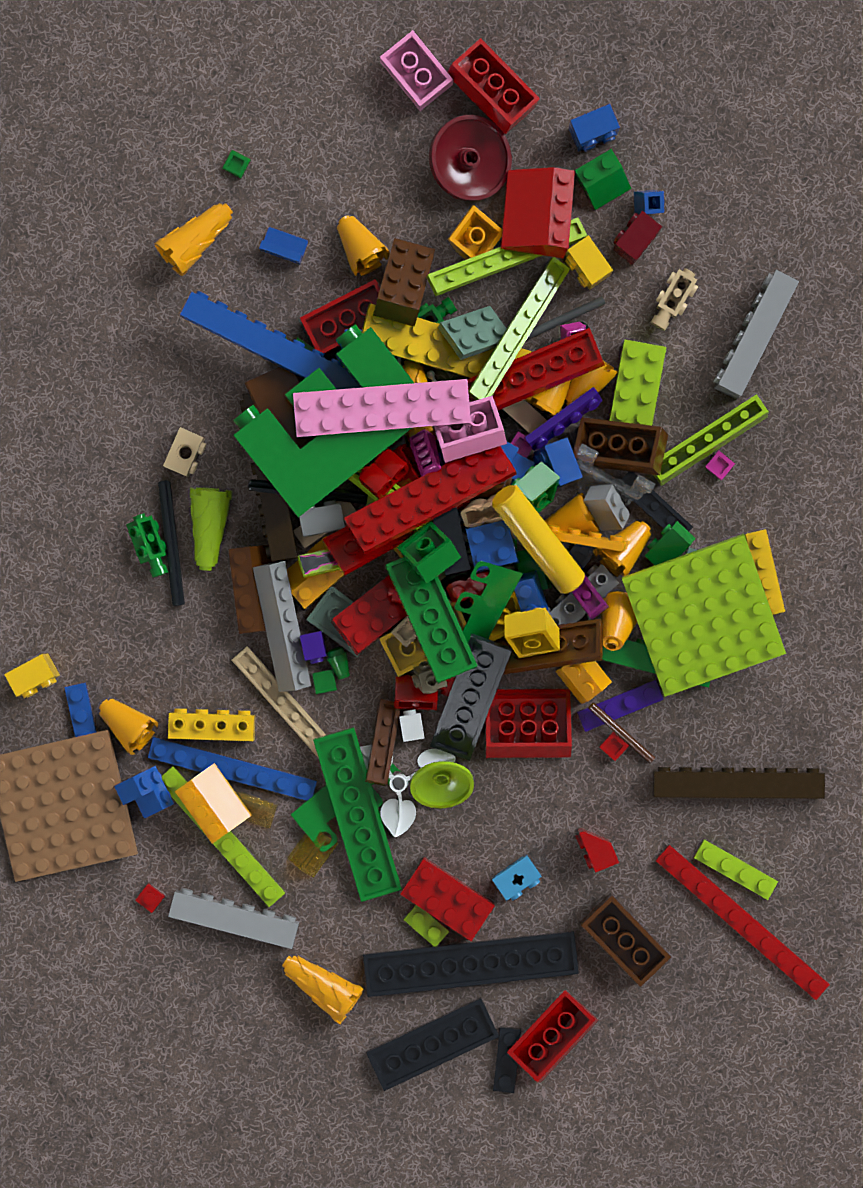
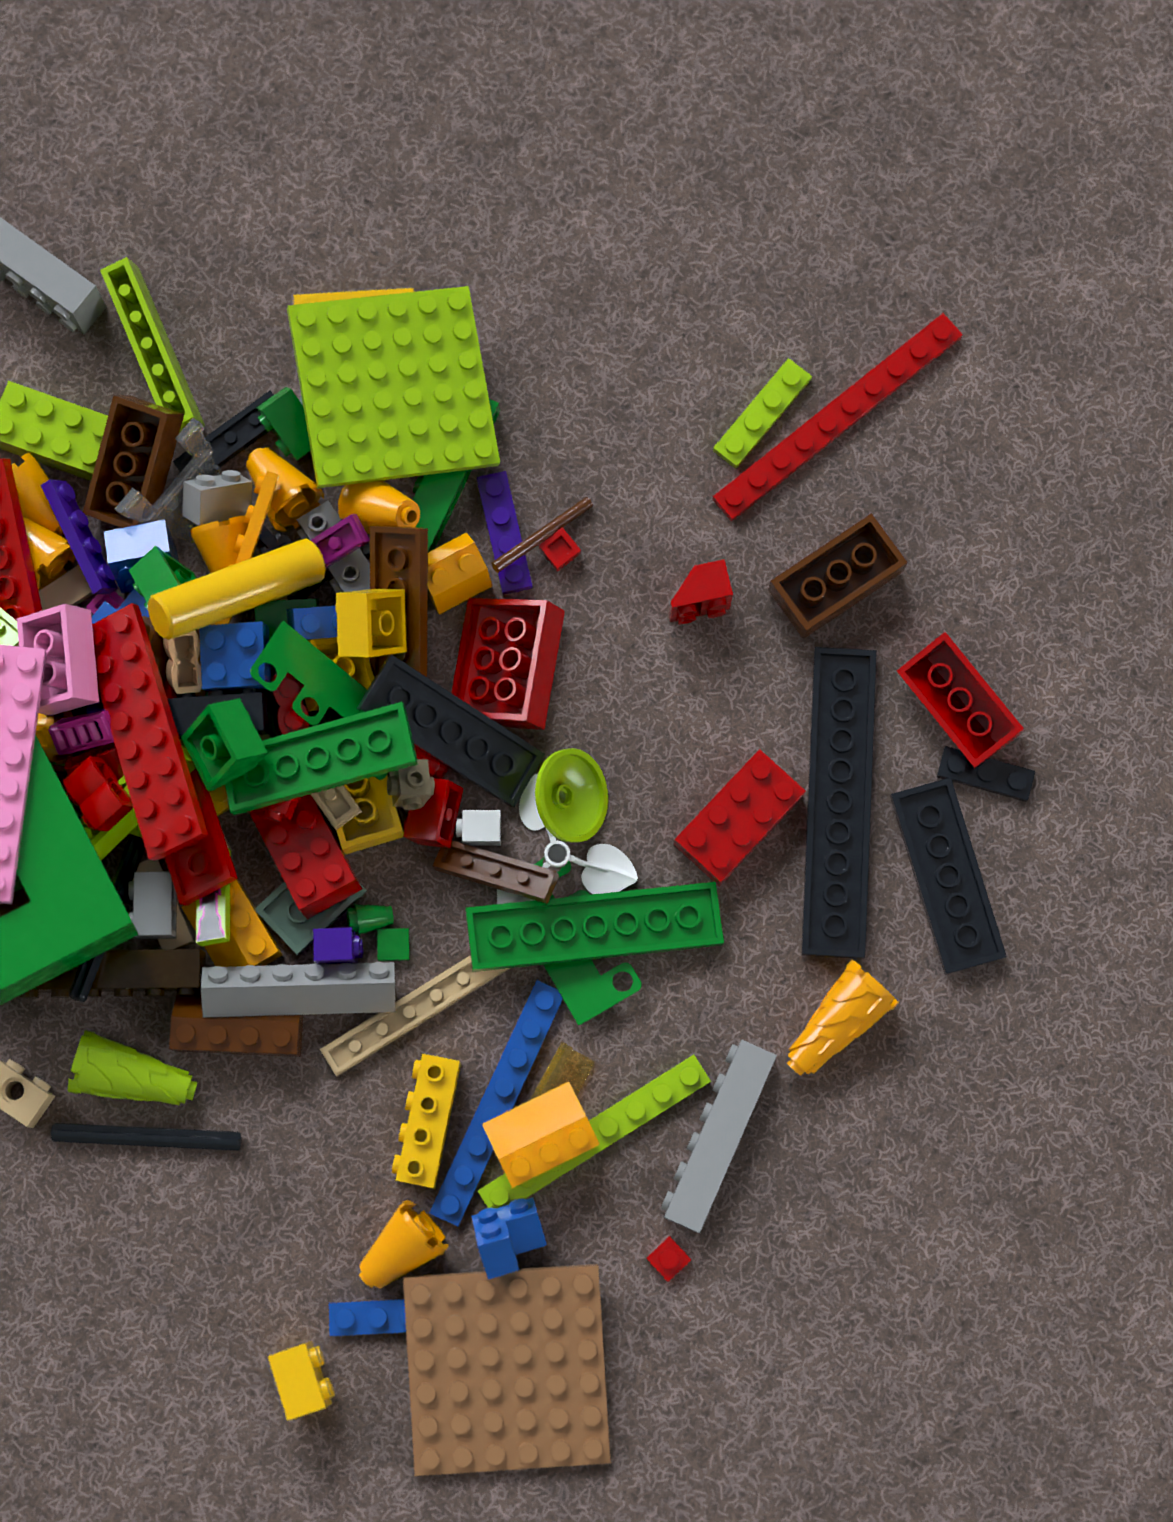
camera: 80 degrees left, 10 degrees down
(148, 543) = (137, 1172): green brick -> none
(307, 855) = (641, 1010): clear yellow panel -> none
(426, 925) = (773, 856): lime plate -> none
(504, 879) = (723, 731): dark azure brick -> none
(719, 465) = (192, 341): dark pink plate -> none
(738, 784) = (642, 388): dark brown brick -> none

